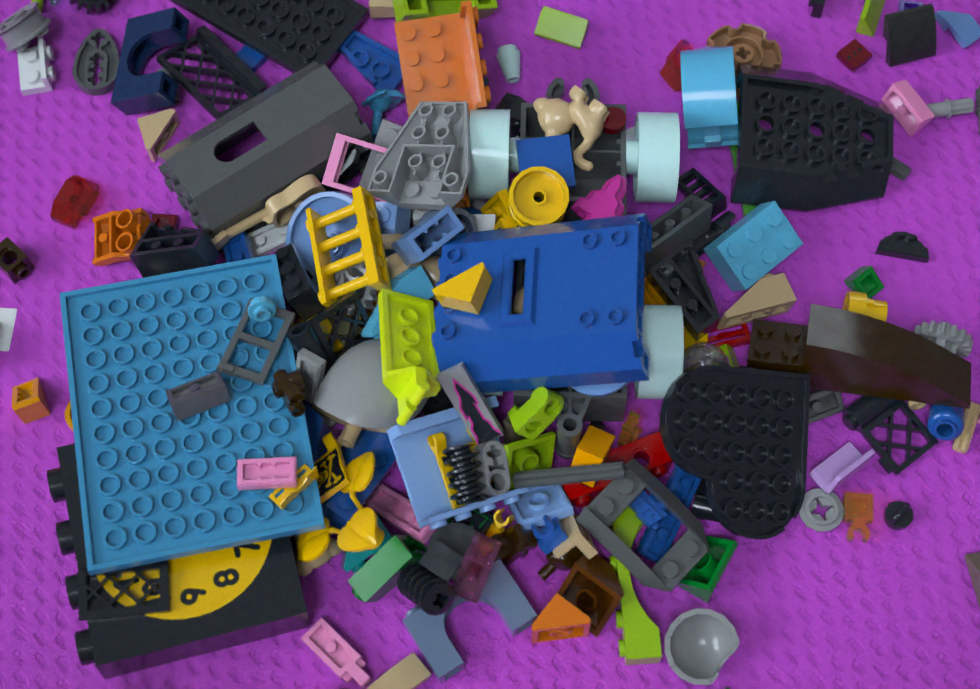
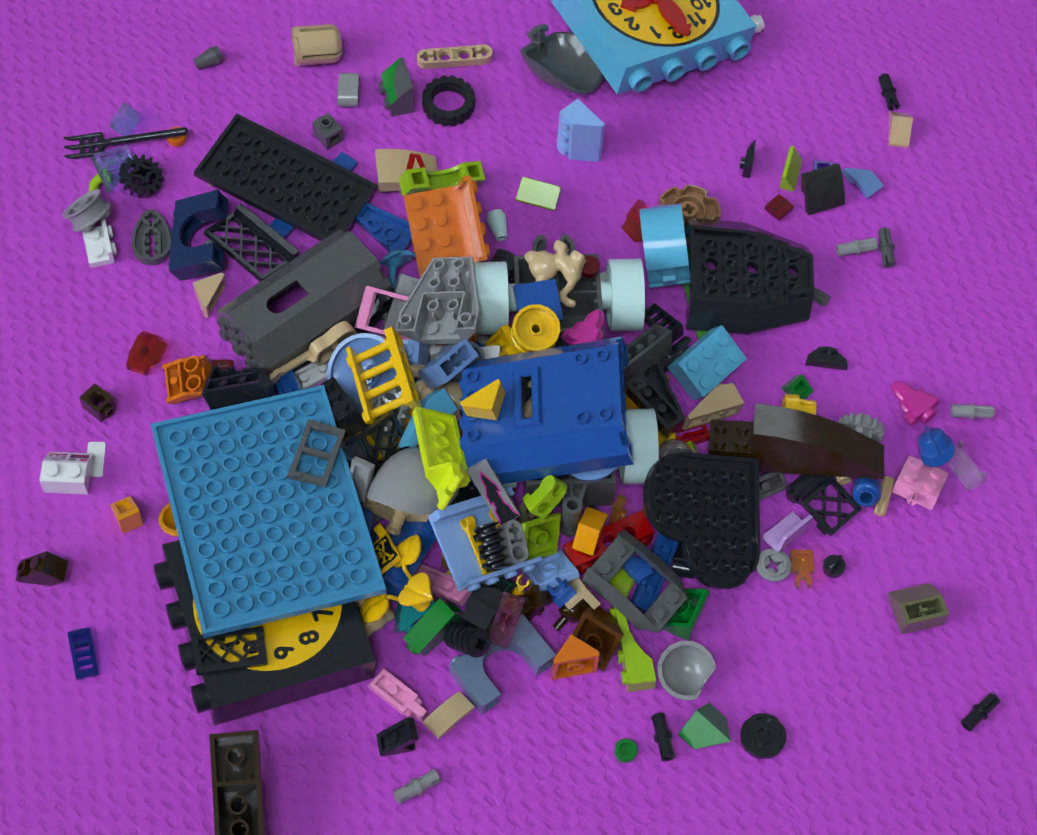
camera: 10 degrees left, 5 degrees down
(198, 395) = (274, 497): flat silver slope -> none
(261, 309) = (319, 427): medium azure plate -> none
(266, 473) = (337, 552): bright pink plate -> none
(290, 388) = (350, 488): dark brown plate -> none
(291, 493) = (361, 560): yellow piece -> none
(569, 475) = (573, 545): dark grey axle -> none
(907, 107) = (824, 247): bright pink slope -> none

